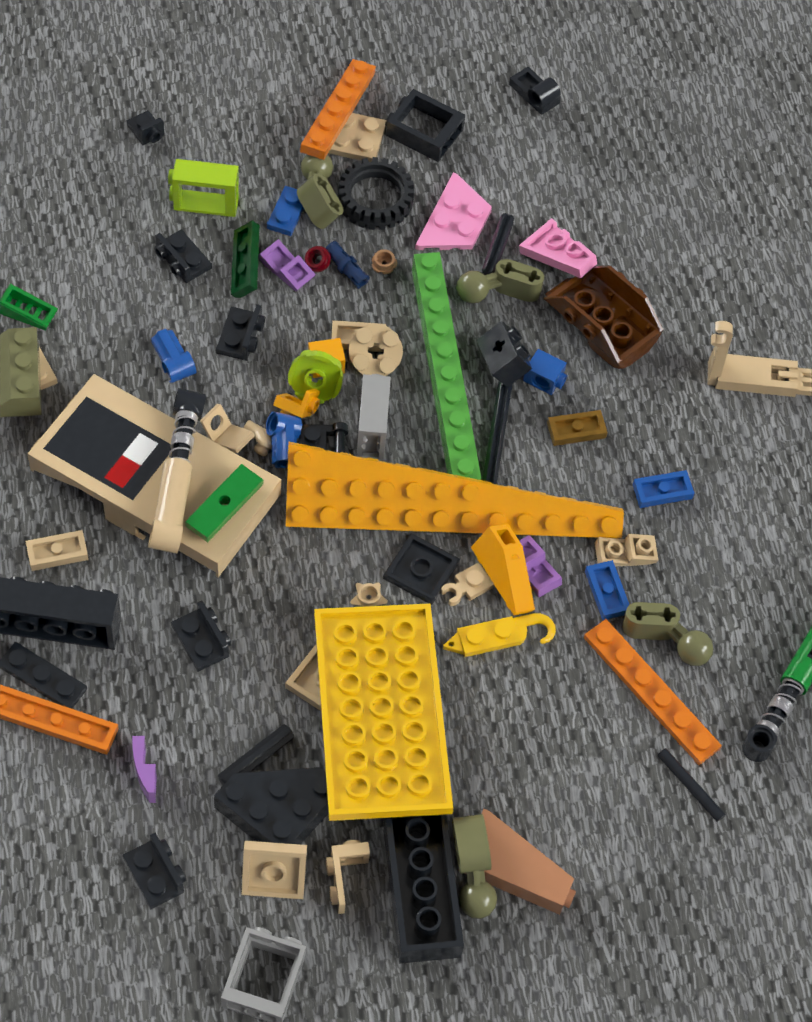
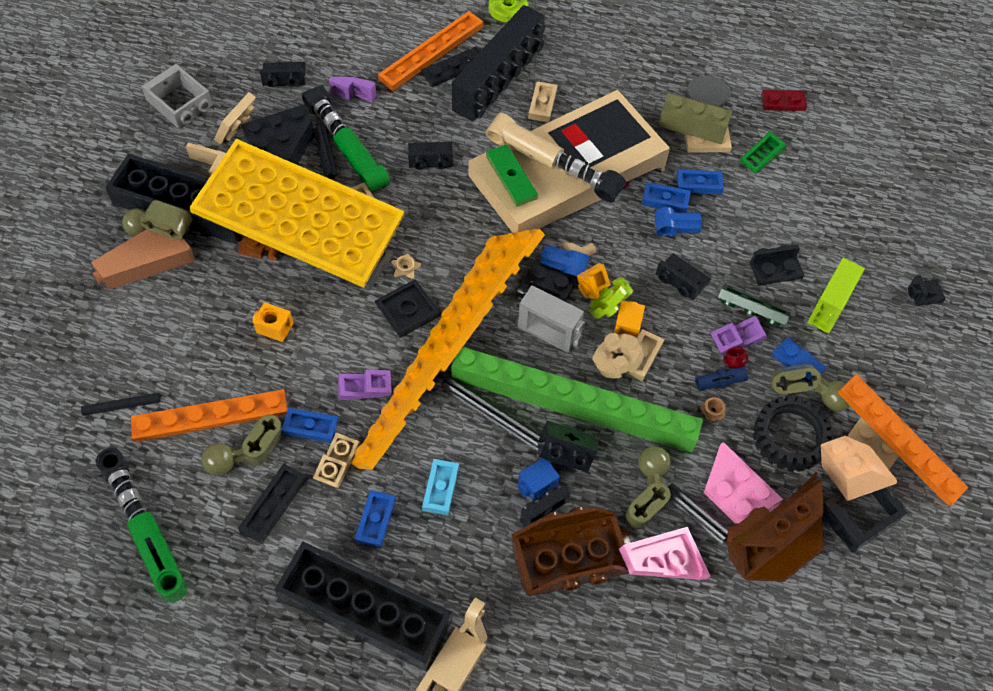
camera: 120 degrees right, 0 degrees up
(102, 353) = (700, 181): none -> blue plate
(142, 377) = (666, 196): none -> blue plate
(226, 434) = (589, 230): tan bracket -> none
(267, 683) = (346, 140): none -> green piece
(397, 128) = (854, 467): none -> light nougat slope
(470, 582) = (375, 334): tan plate -> none
(489, 162) = (779, 539): none -> reddish brown slope
(497, 634) = (322, 334): yellow plate -> none
(506, 566) = (366, 356): light orange slope -> none
(520, 672) = (277, 330): none -> light orange brick
(537, 92) = (880, 642): black plate -> none
(577, 362) = (552, 501): none -> black plate
(577, 427) = (471, 480): pearl gold plate -> none
(599, 450) = (440, 487): none -> medium azure plate
(703, 582) = (272, 503): none -> black plate
(749, 455) = (364, 606): none -> black brick

